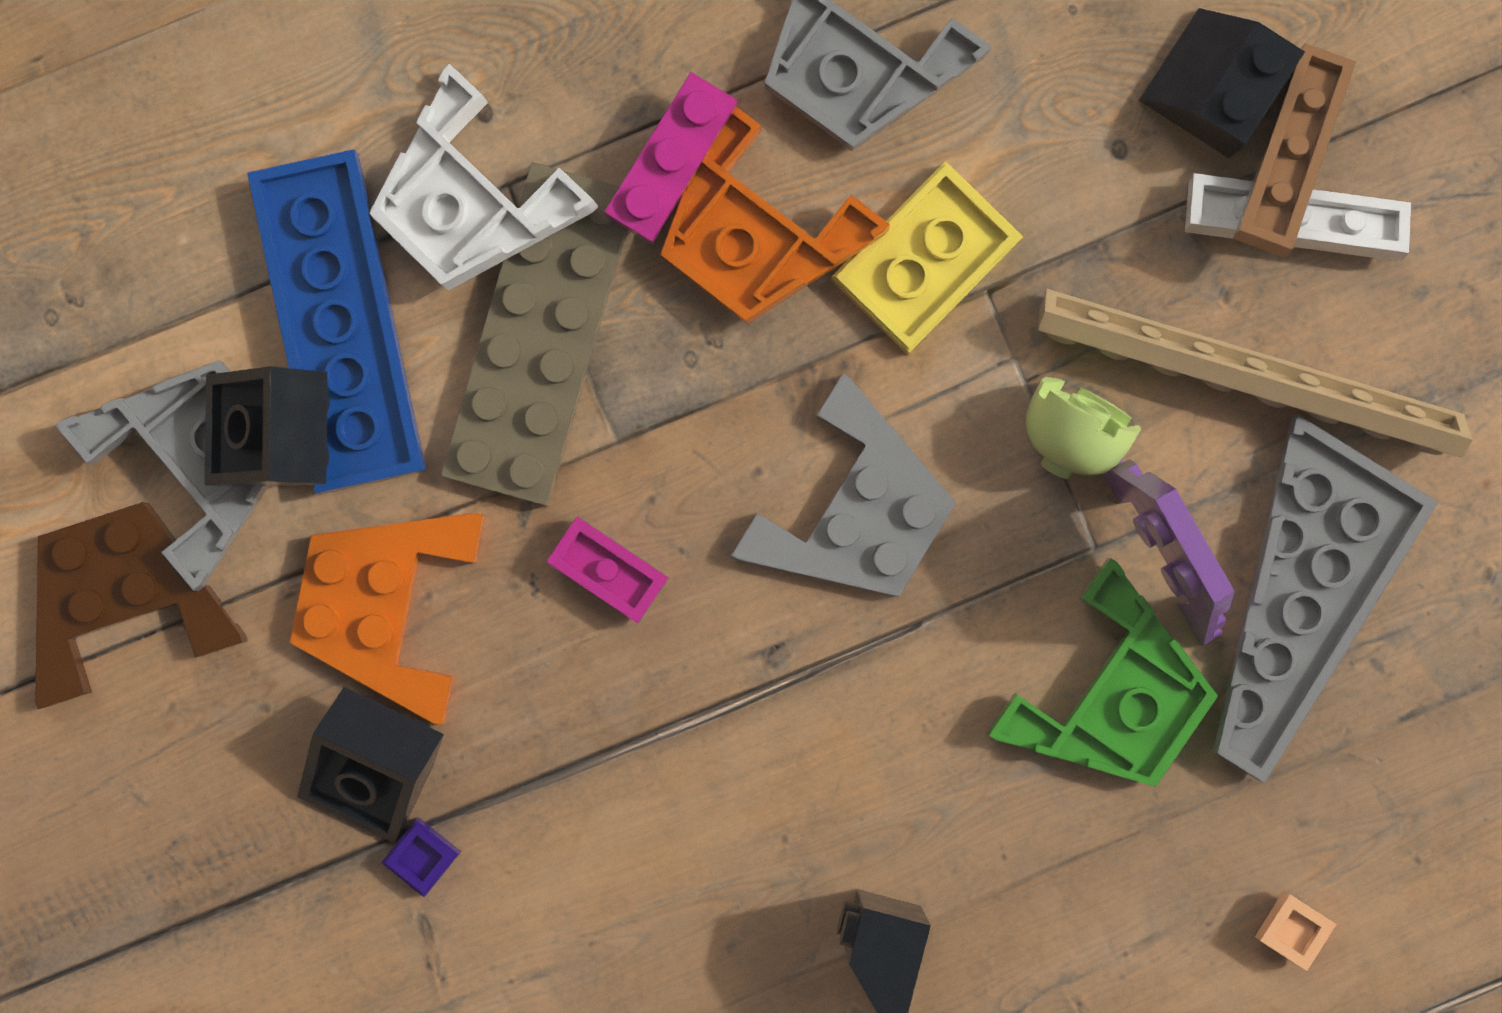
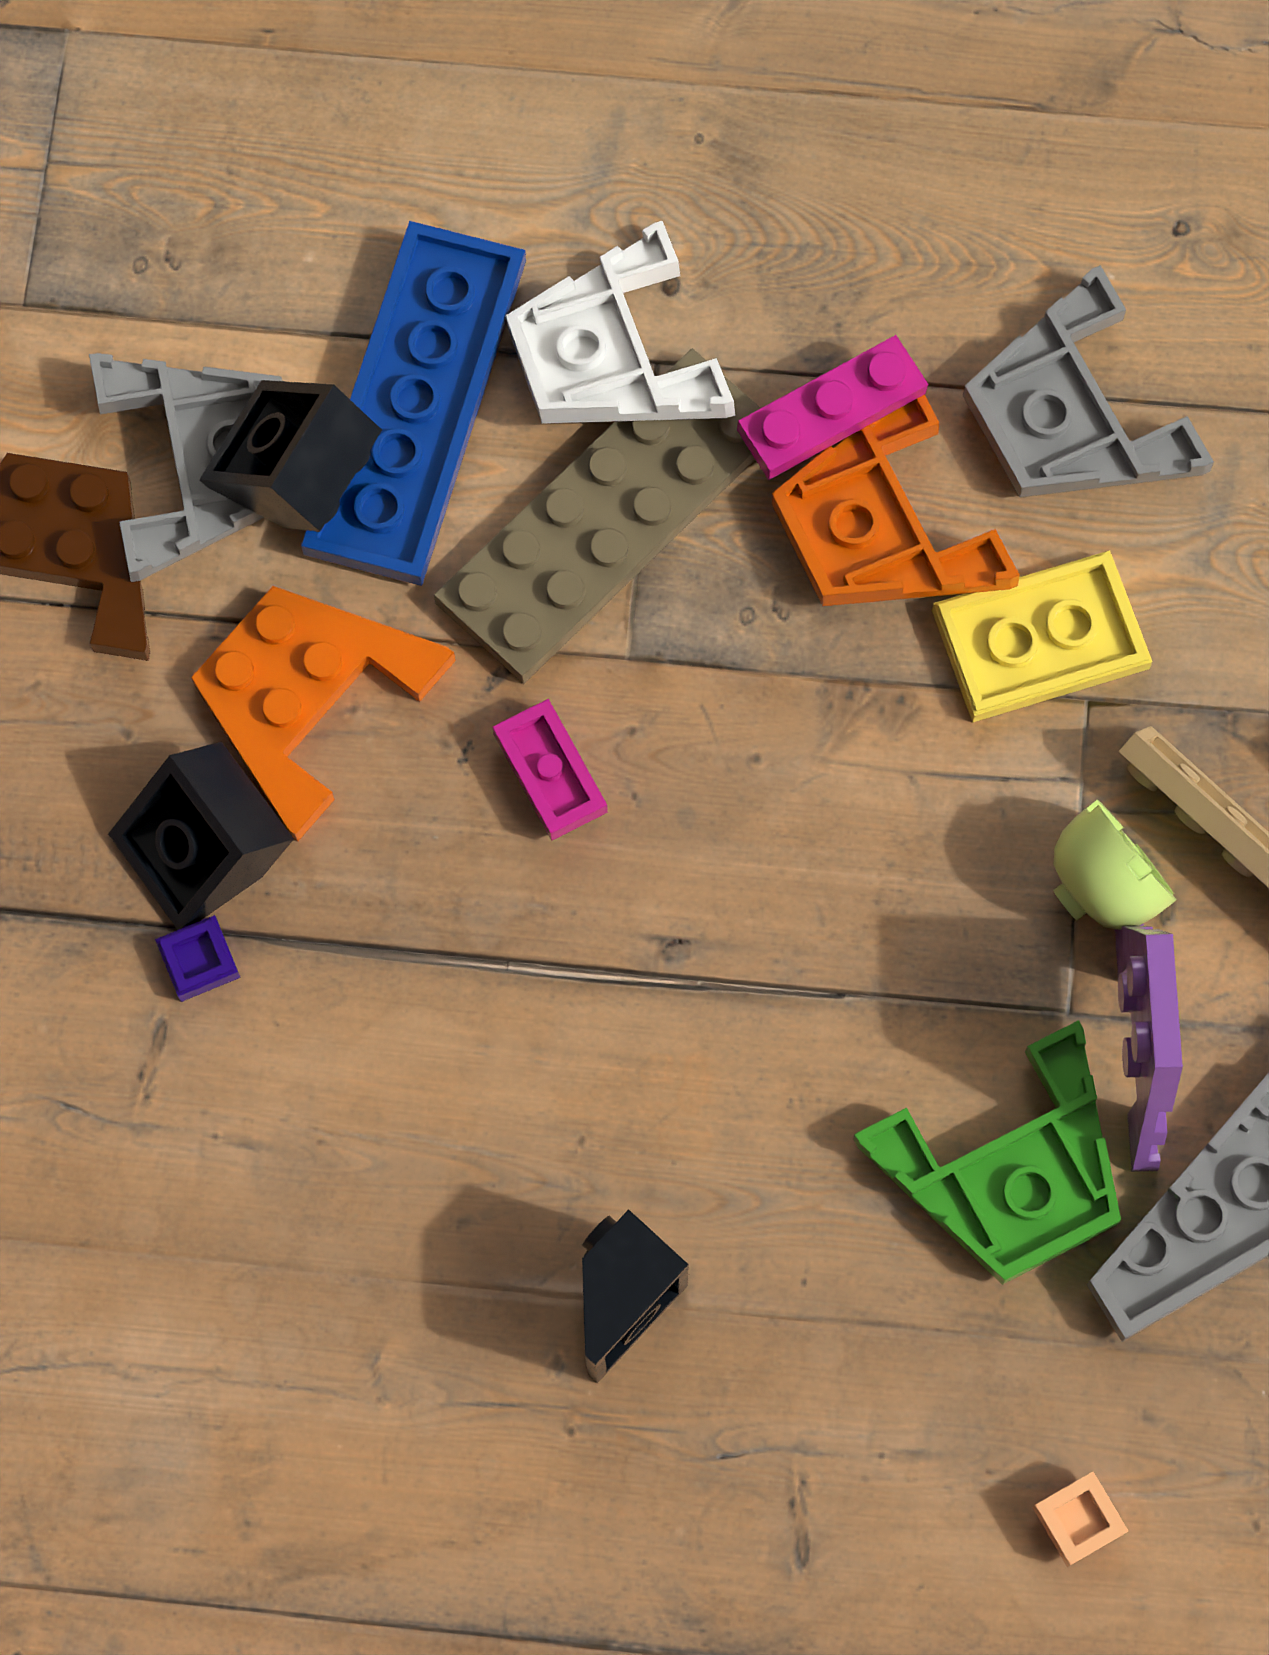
camera: 30 degrees right, 15 degrees down
(876, 520) = (850, 865): light grey wing -> none

